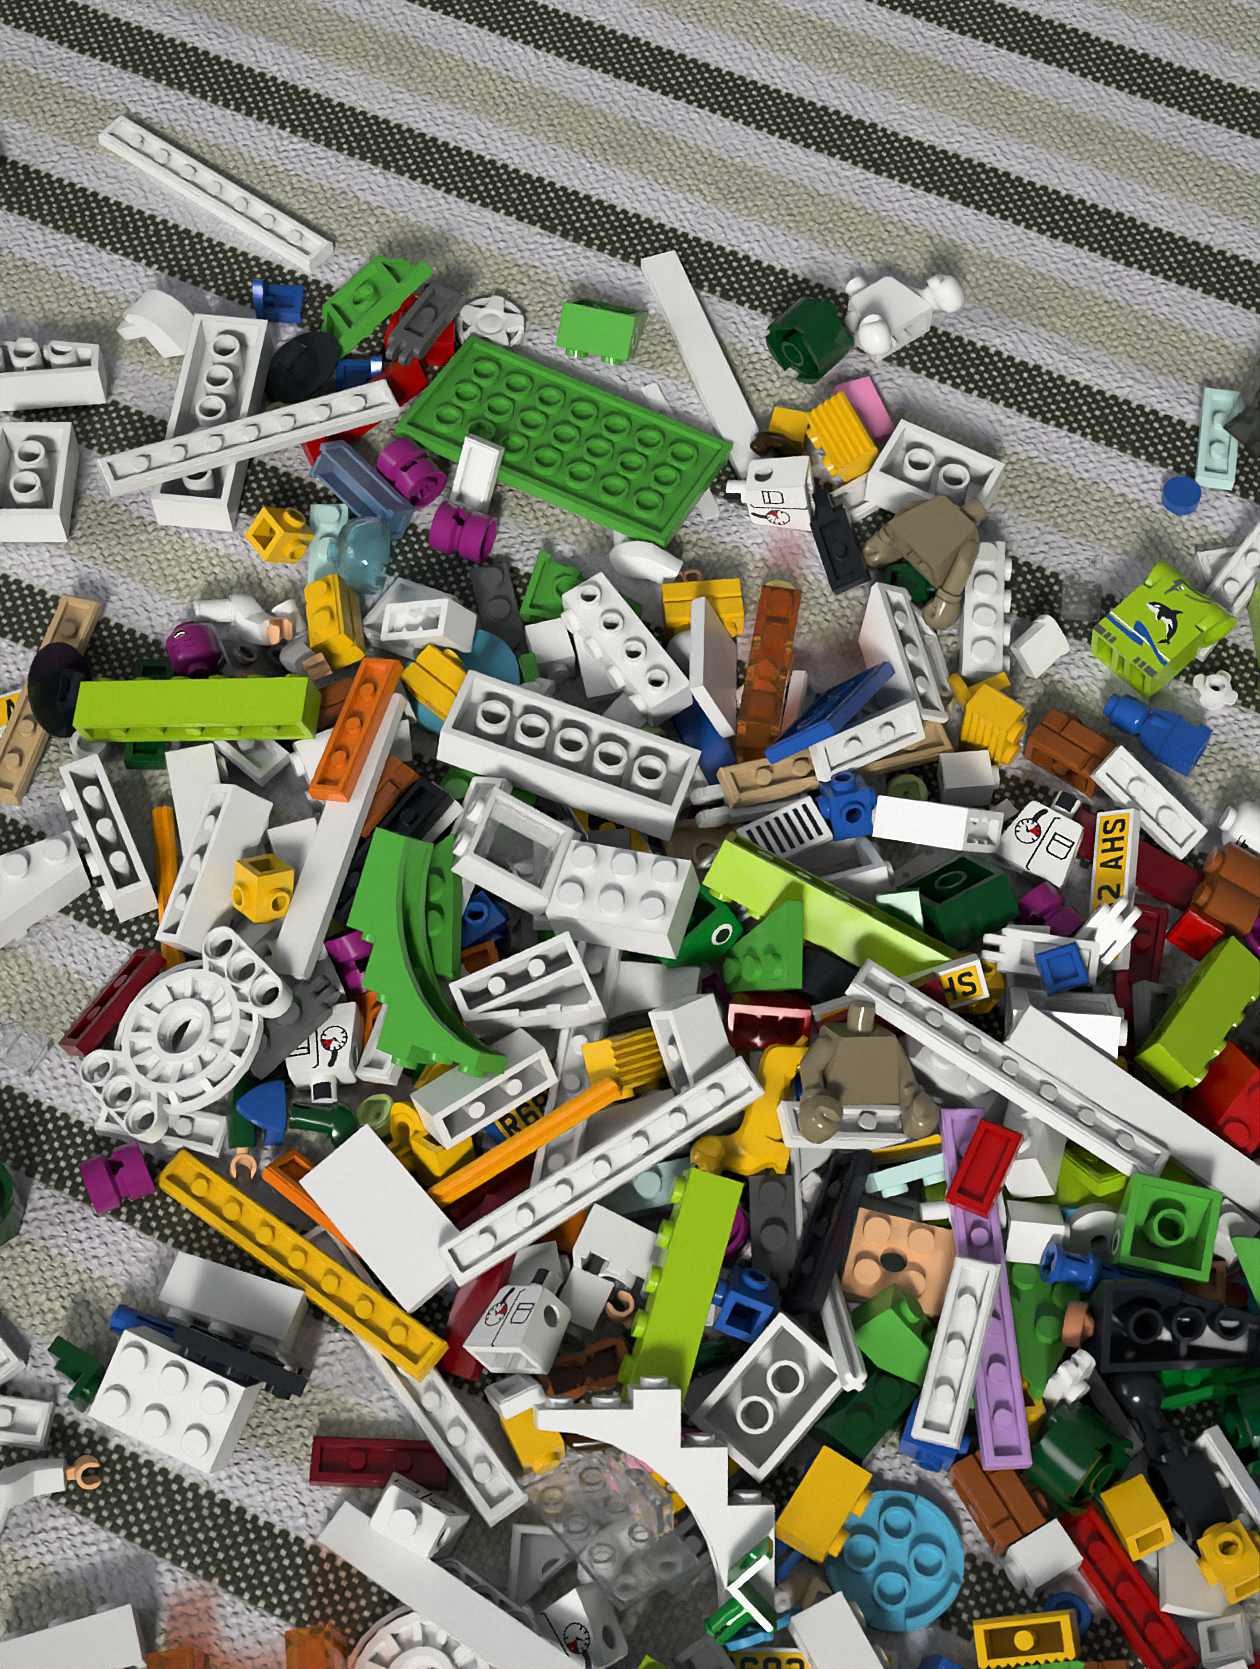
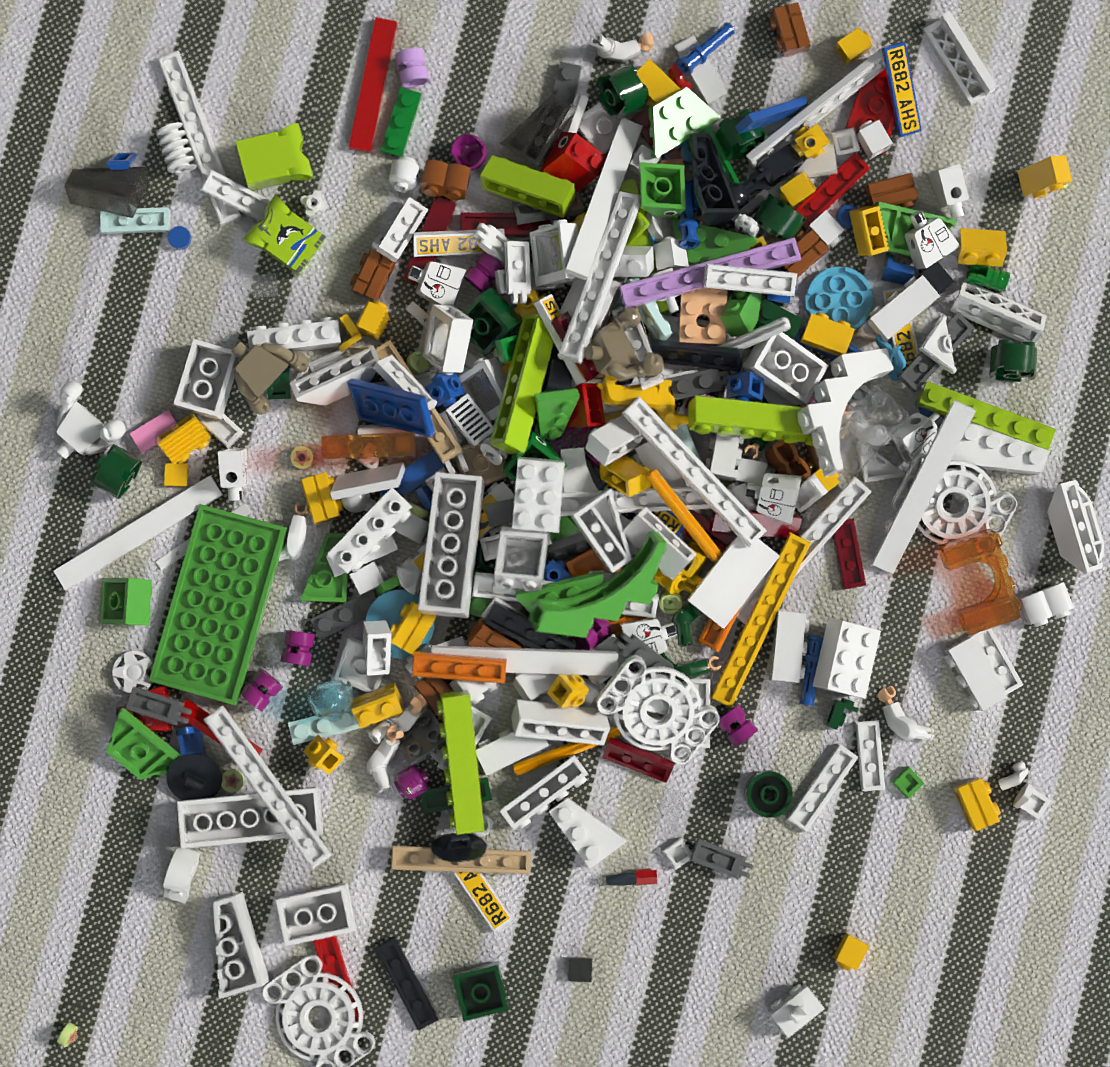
camera: 105 degrees left, 25 degrees up
(201, 1343) = (825, 620): black wing -> none
(216, 193) = (60, 876): white tile -> none
(266, 1109) = (686, 657): blue tile -> none
(278, 302) = (142, 808): blue tile -> none
(361, 486) = (279, 715): sand blue container -> none
(417, 1518) = (876, 528): white torso -> none
(476, 474) = (259, 648): white tile -> none
(746, 1600) = (885, 360): green bracket -> none
(777, 442) = (193, 478): dark brown arm -> none
(838, 544) = (259, 429): black hinge -> none
(967, 778) = (403, 331): white brick -> none
(984, 1168) = (656, 280): red tile -> none
(1040, 646) = (307, 303): white tile -> none
(1061, 969) = (526, 259): blue tile -> none
(1077, 1324) = (720, 225): nougat tile -> none
(1161, 733) = (351, 229): blue piece -> none
(1195, 933) = (475, 196): red tile -> none

